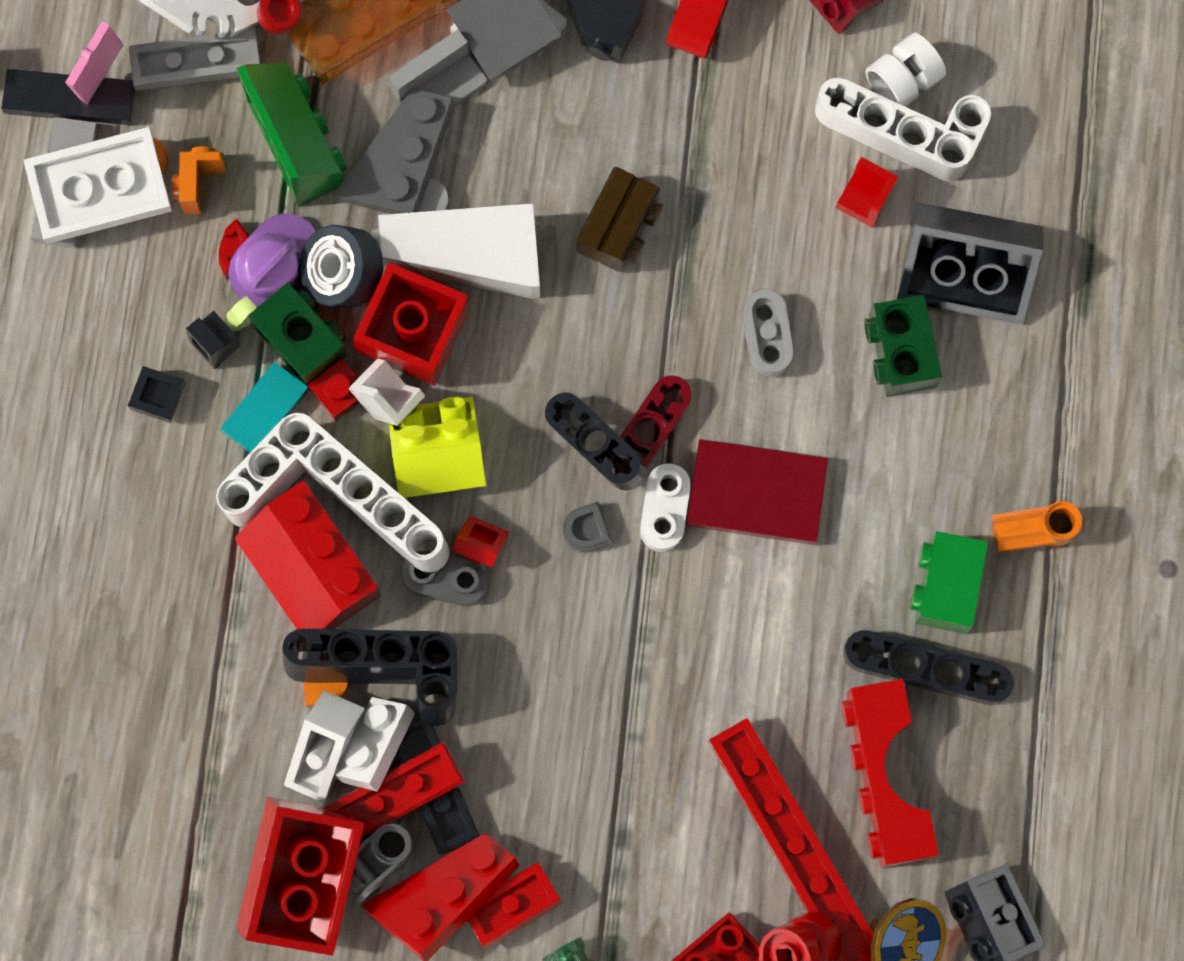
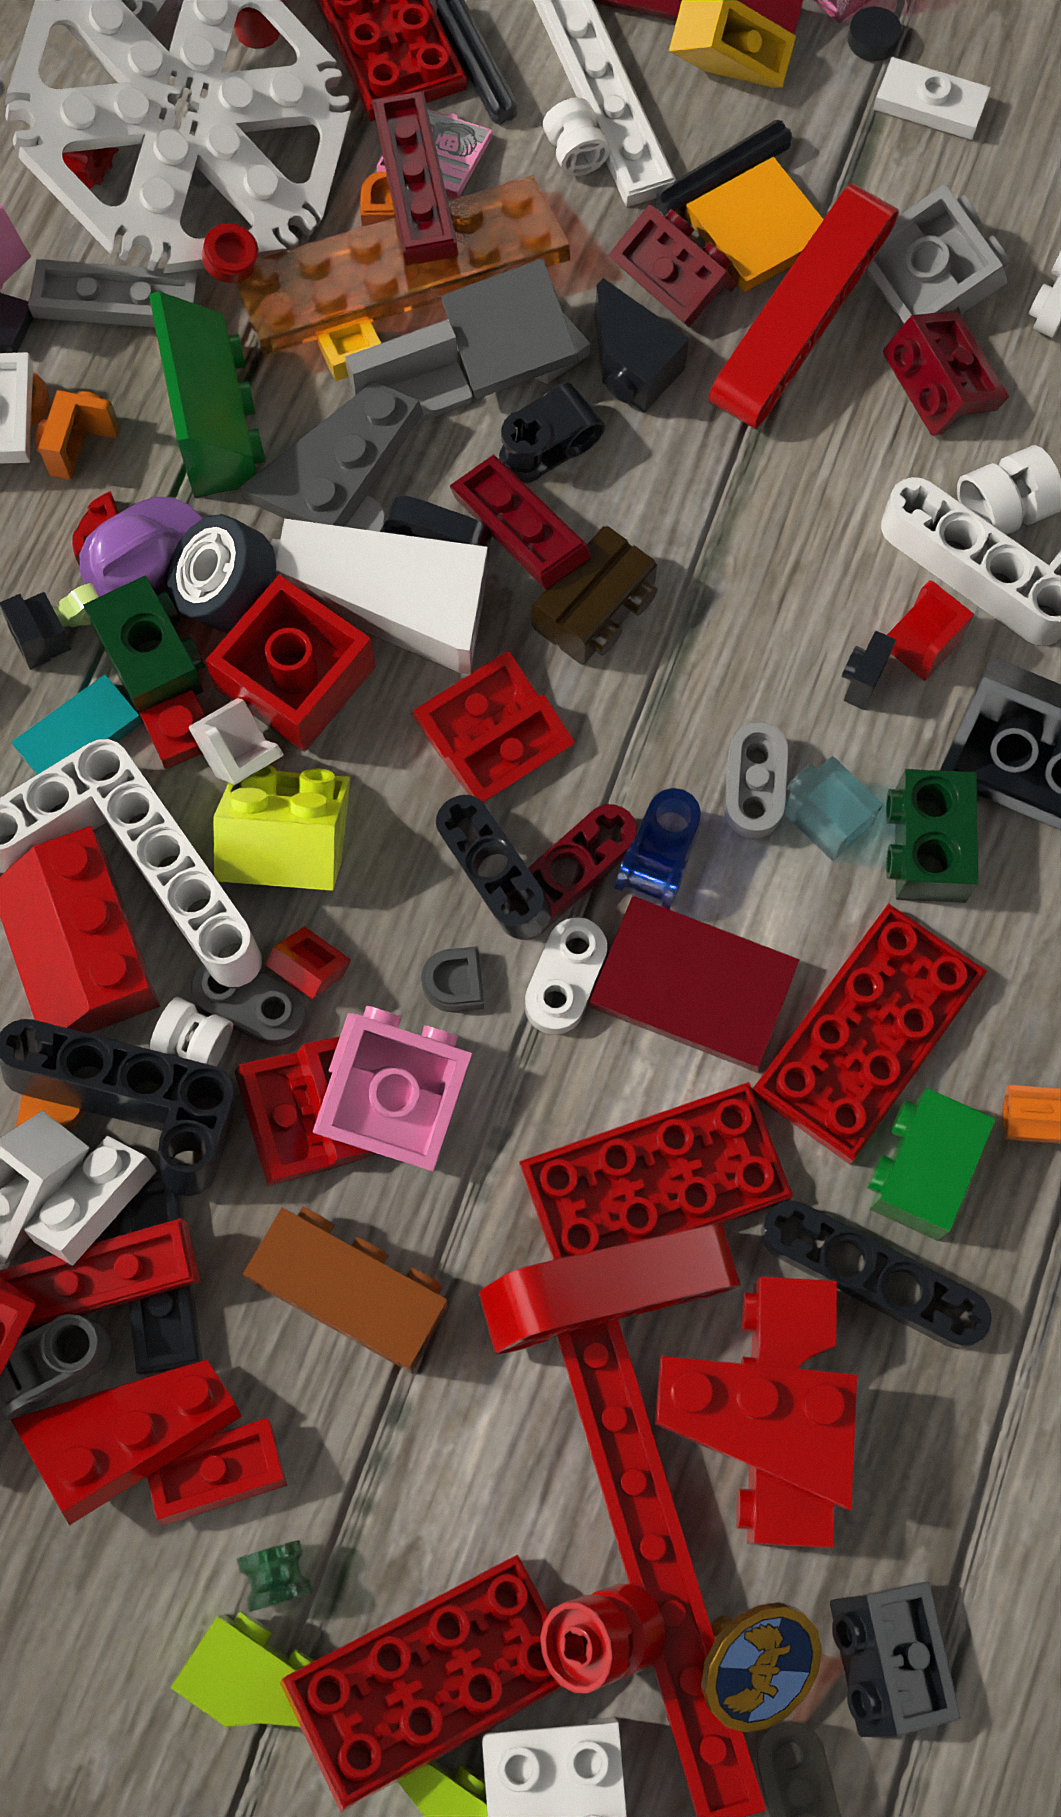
camera: 15 degrees right, 5 degrees down
(384, 62) = (343, 342): none -> yellow plate
(403, 610) = (190, 1034): none -> white wheel
(483, 192) = (426, 520): none -> black beam
(511, 643) = (282, 1107): none -> red slope
(550, 175) = (520, 521): none -> dark red tile
(557, 95) = (549, 432): none -> black piece
(565, 617) = (392, 1088): none -> bright pink plate
(567, 336) = (492, 727): none -> red slope
(569, 761) = (348, 1287): none -> dark orange brick
(712, 407) = (658, 856): none -> clear blue piece
(747, 719) = (606, 1286): none -> red beam
(762, 638) = (658, 1175): none -> red tile
(825, 341) = (831, 806): none -> clear light blue brick
(828, 231) = (866, 668): none -> black plate
(877, 780) = (769, 1417): none -> red wing
(888, 499) = (868, 1033): none -> red tile

